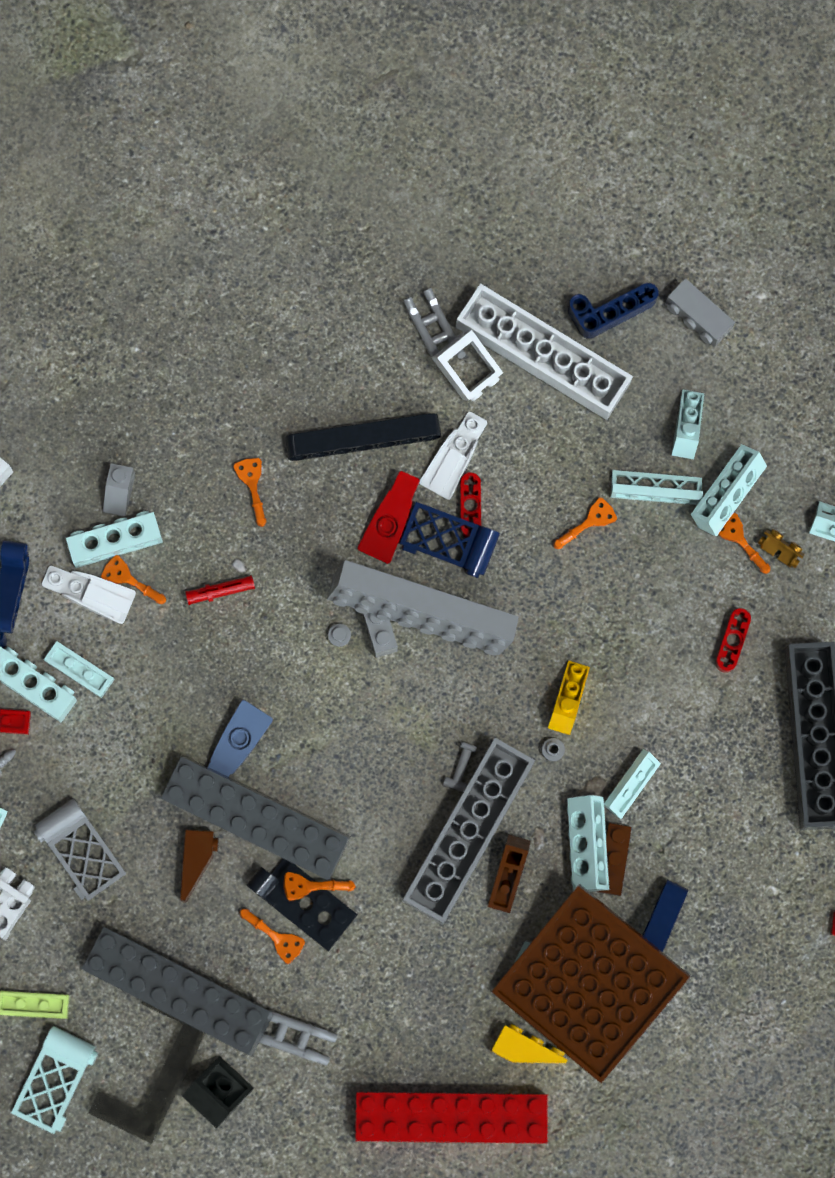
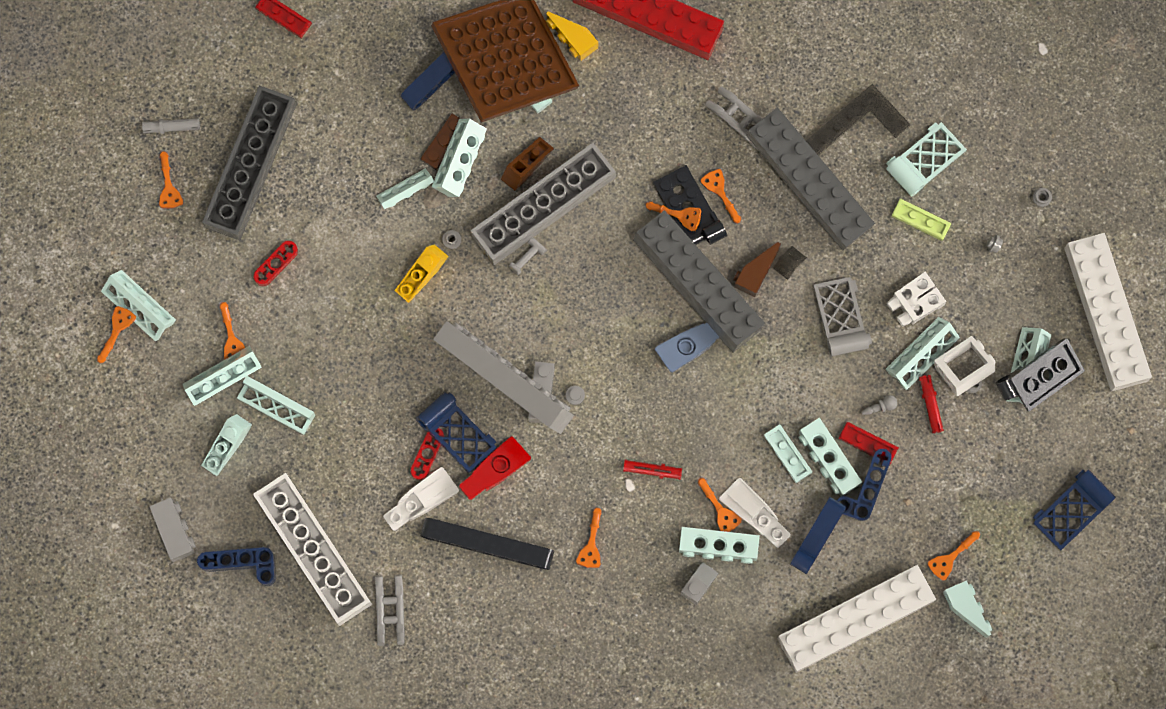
camera: 150 degrees left, 0 degrees up
(163, 887) = (789, 262): none -> clear smoke bracket
(217, 1092) = (809, 99): pearl dark grey slope -> none
(453, 348) = (382, 579): white window -> none
(591, 520) = (339, 401): orange piece -> none
(775, 542) = (198, 309): pearl gold hinge -> none

